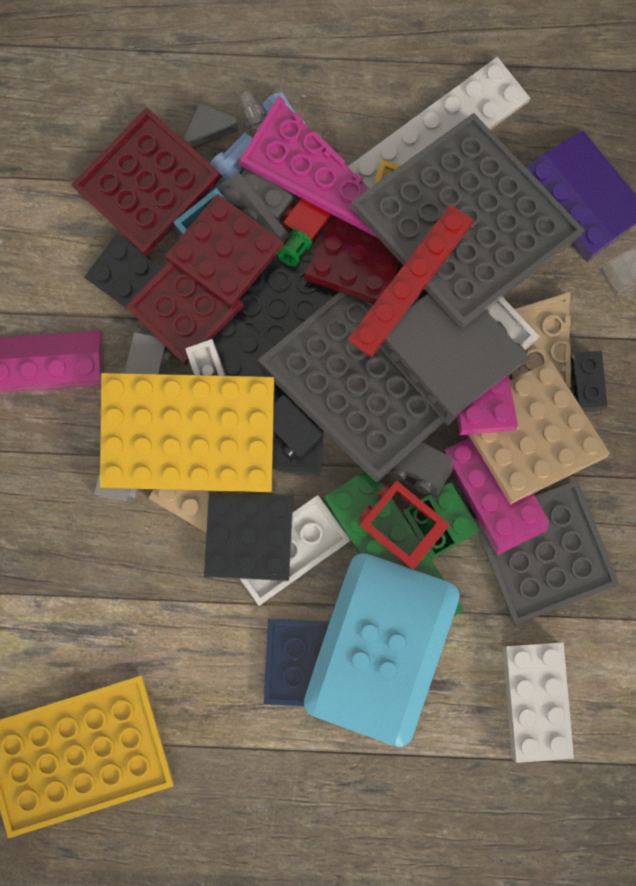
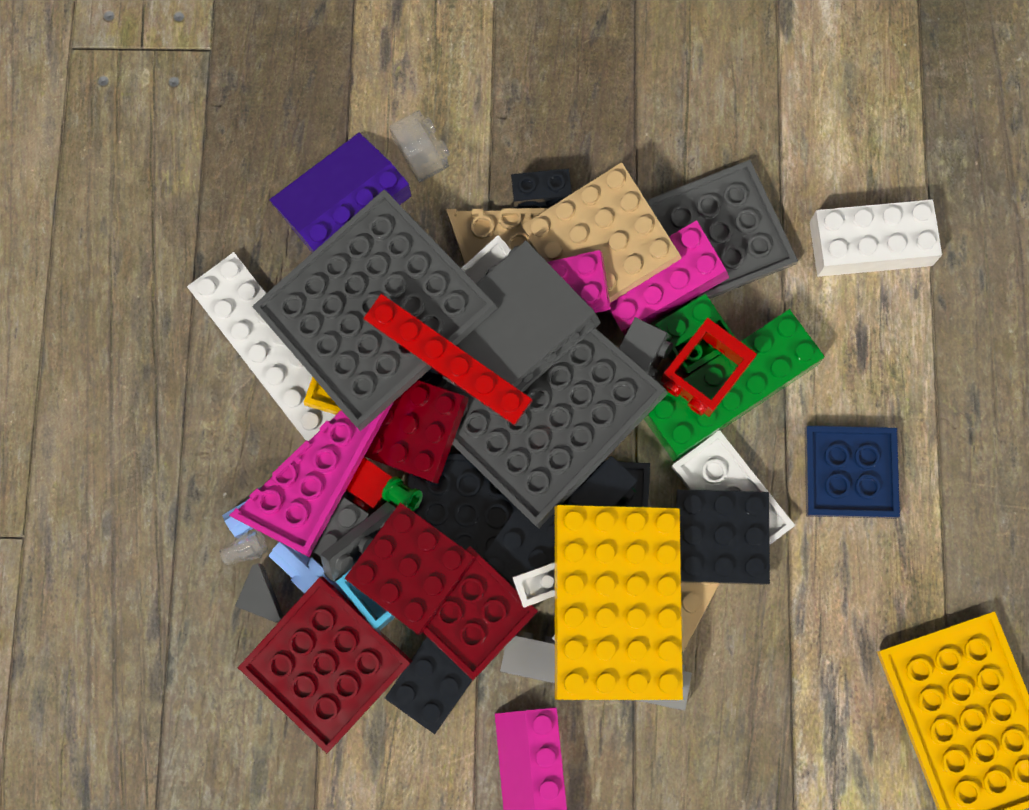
camera: 85 degrees left, 5 degrees down
(381, 649) = (836, 391): medium azure wedge -> none

